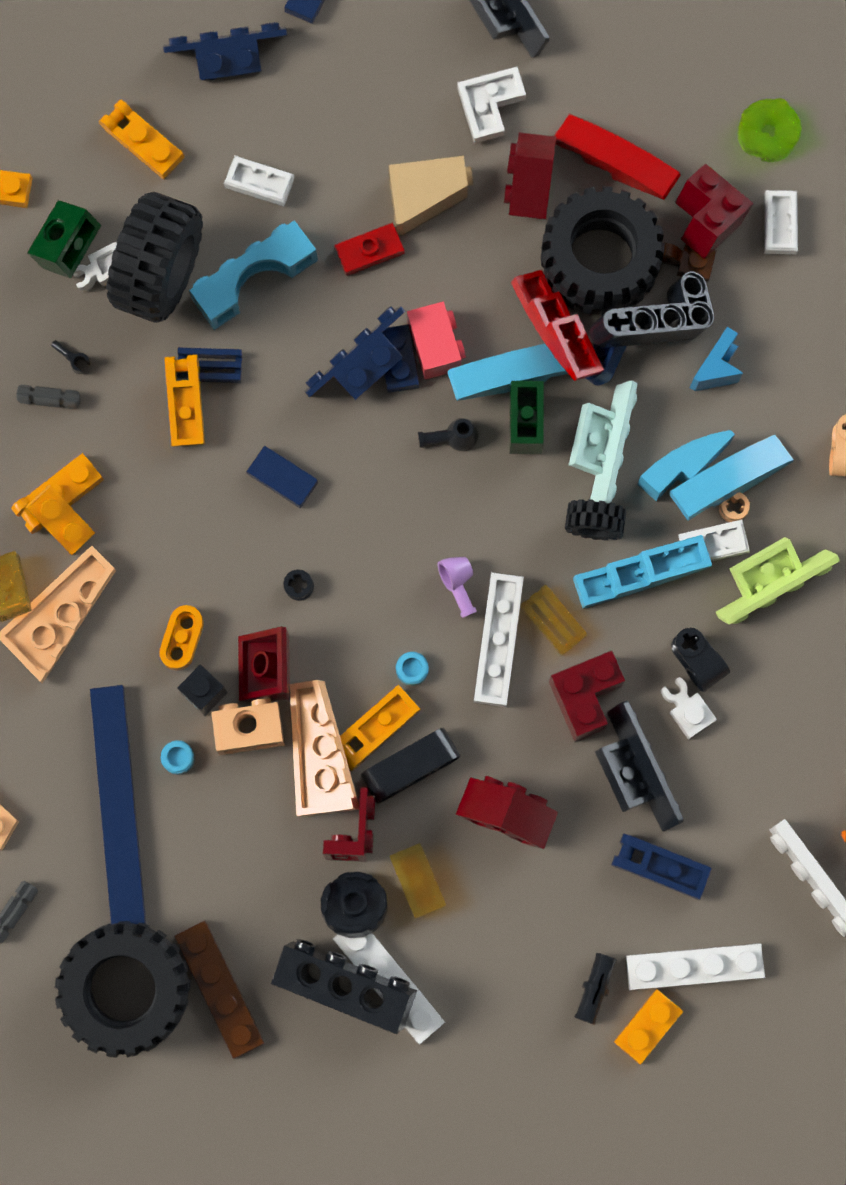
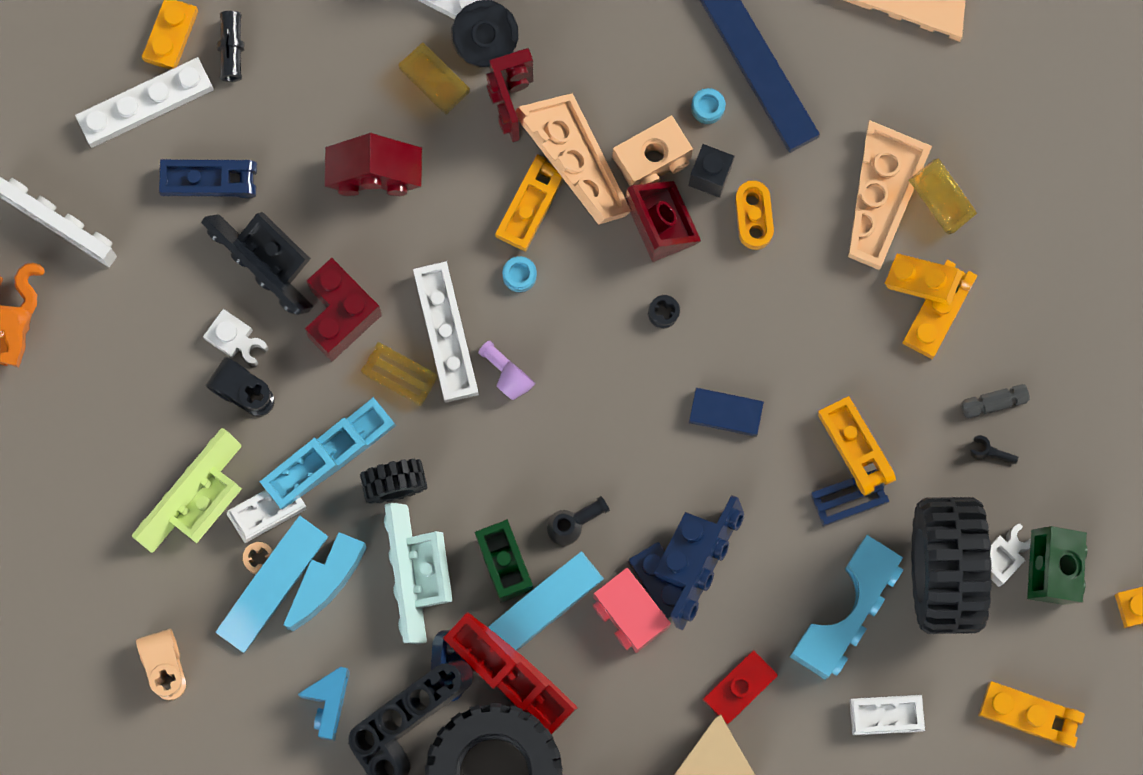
camera: 155 degrees right, 0 degrees up
(410, 765) = (483, 179): black beam -> none

